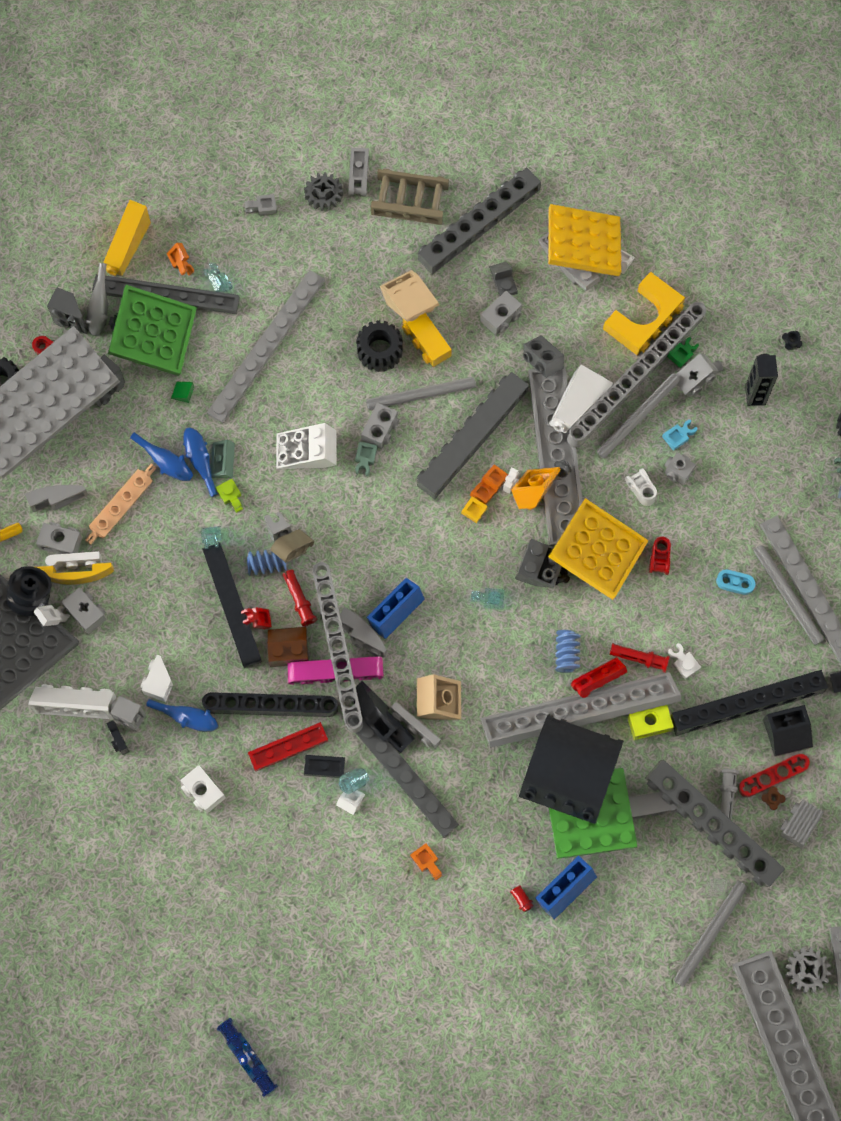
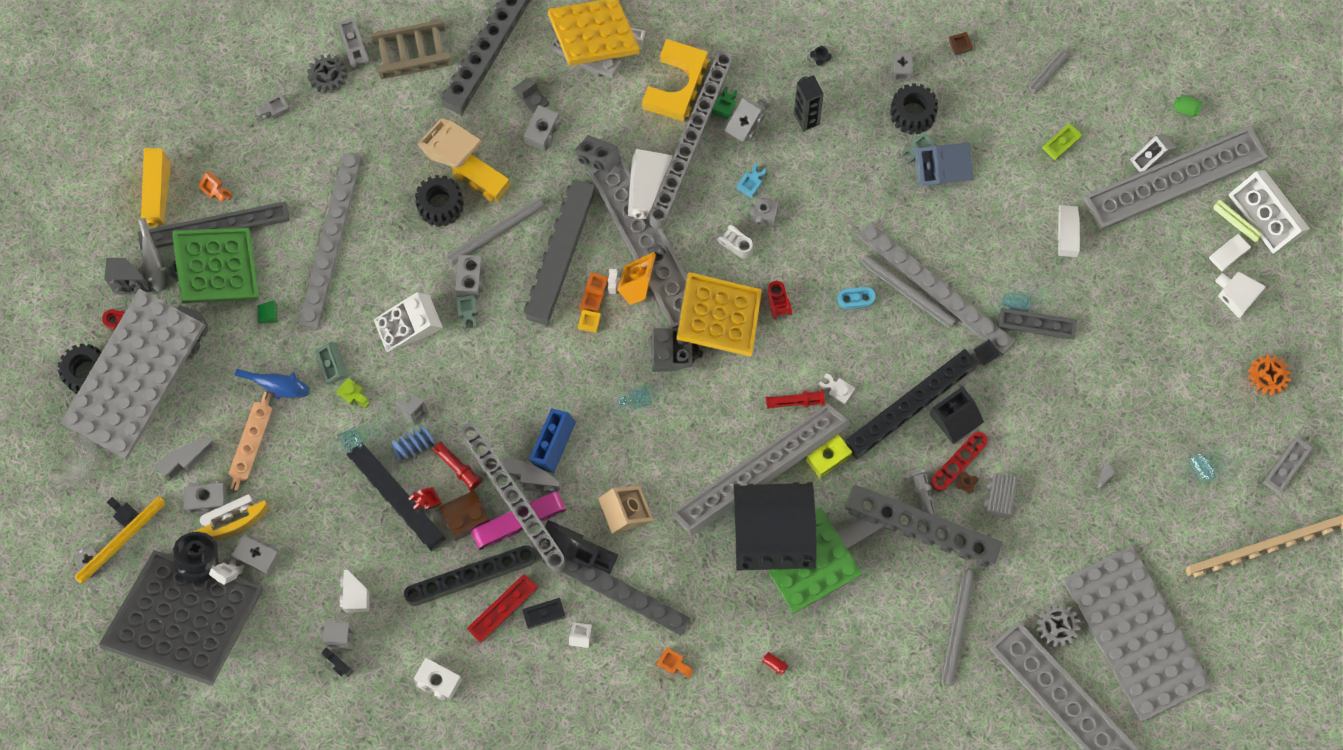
camera: 20 degrees left, 0 degrees up
(72, 702) = (281, 646): white slope -> none
(187, 716) = (396, 616): blue piece -> none
(199, 456) = (308, 368): blue piece -> none
(218, 280) = (258, 193): clear light blue plate -> none
(292, 545) = (431, 418): dark tan beam -> none
(353, 780) = (576, 615): clear light blue brick -> none
(414, 726) = (614, 543): light grey plate -> none
(566, 887) = (811, 636): blue brick -> none
(567, 651) = (726, 419): medium blue piece -> none
(598, 677) = (765, 433): red plate -> none
(638, 415) = (707, 177): light grey axle -> none

